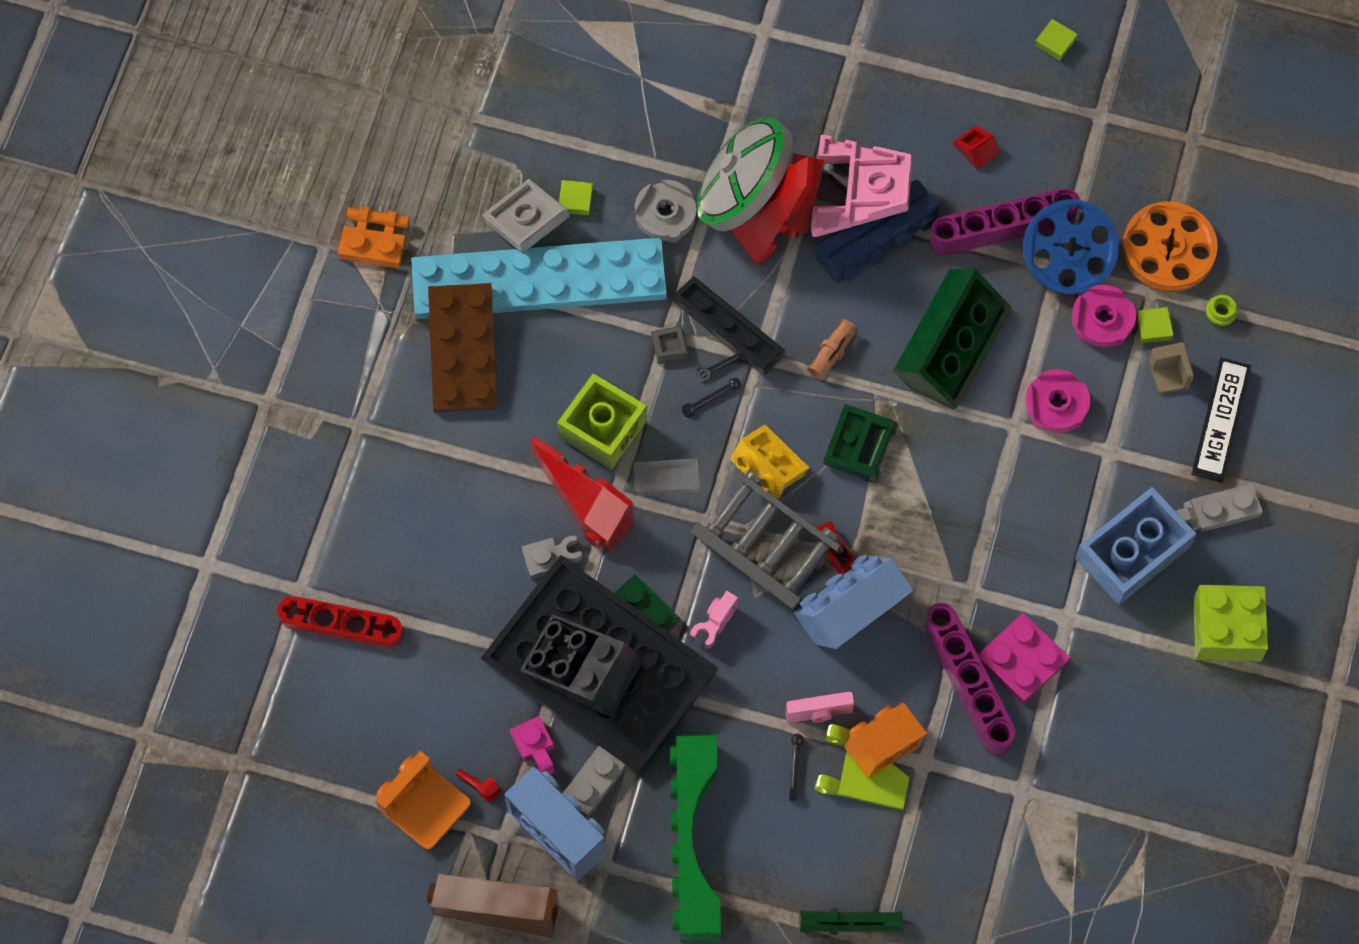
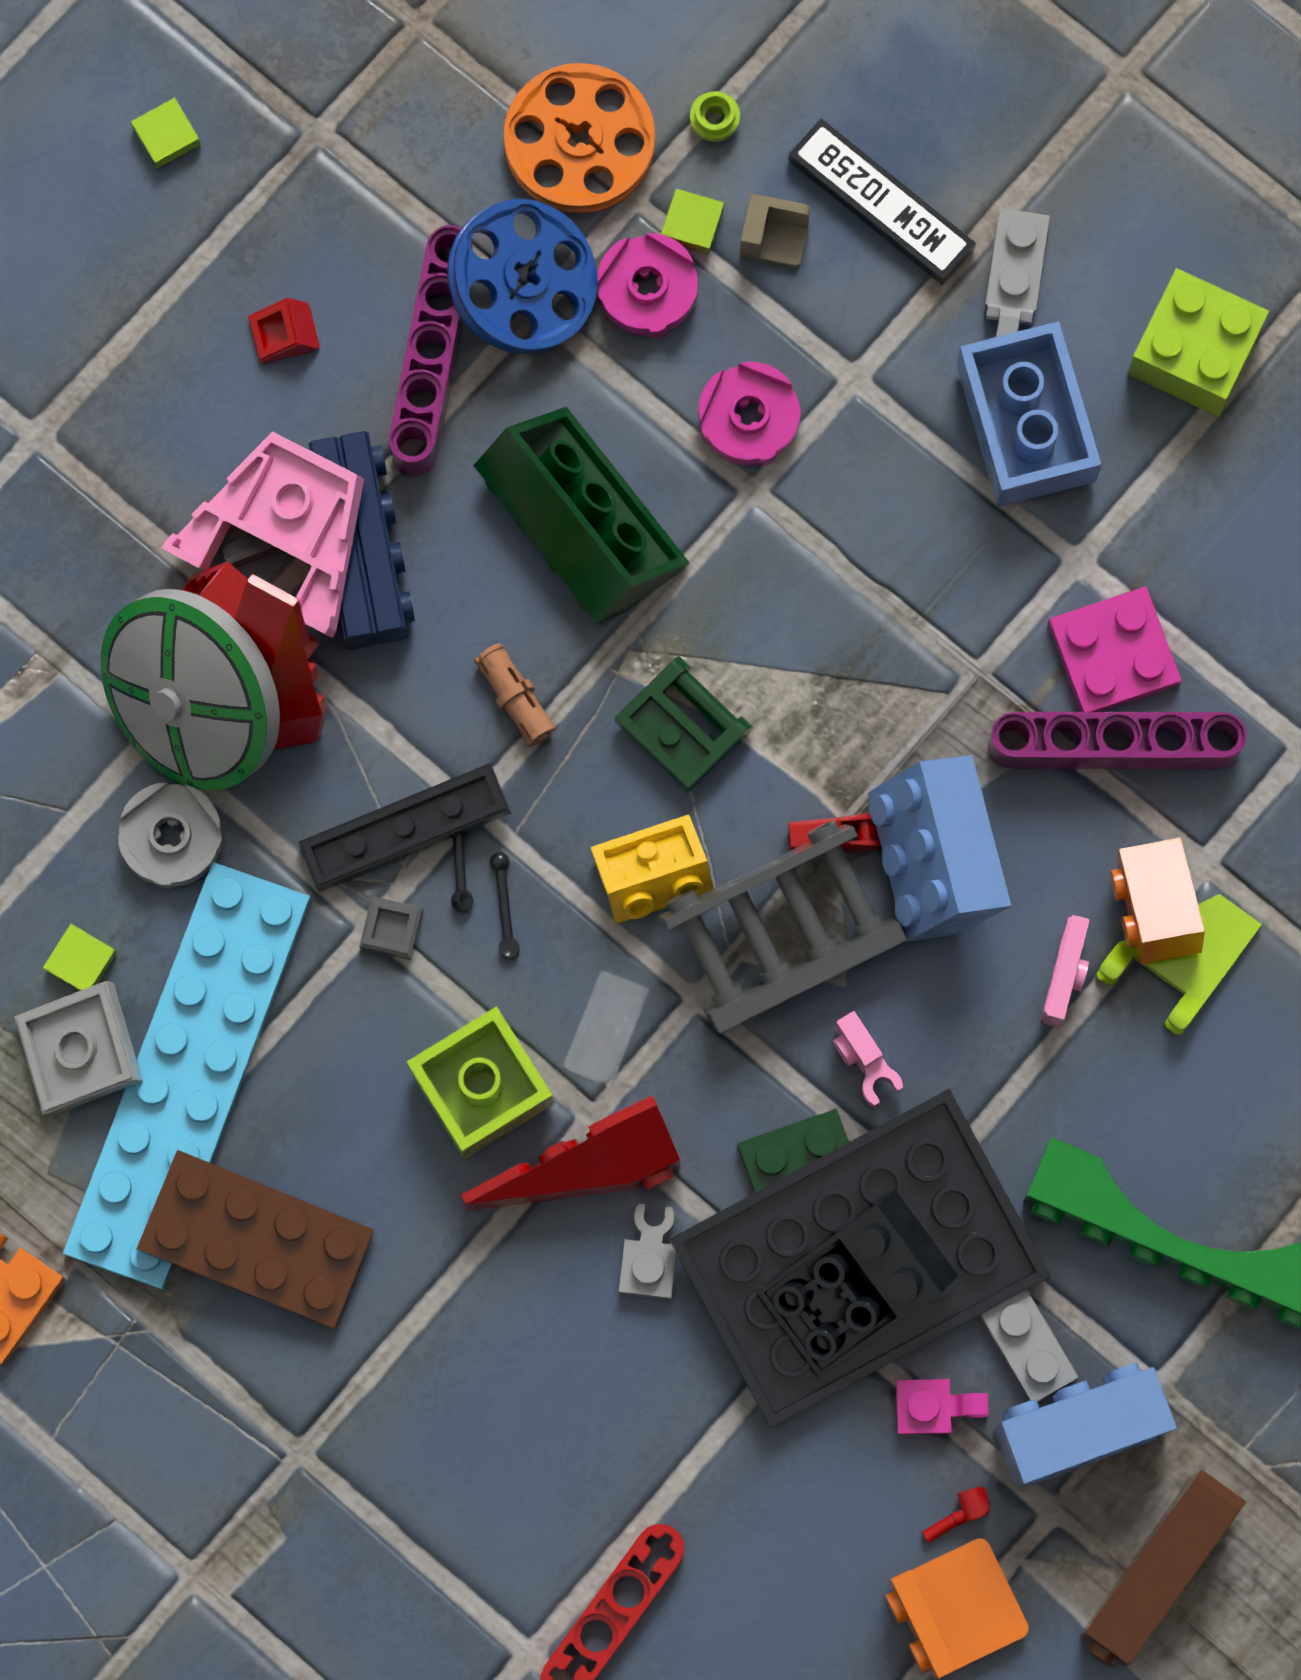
camera: 65 degrees left, 10 degrees up
(797, 740) = (1094, 1026): black hinge -> none

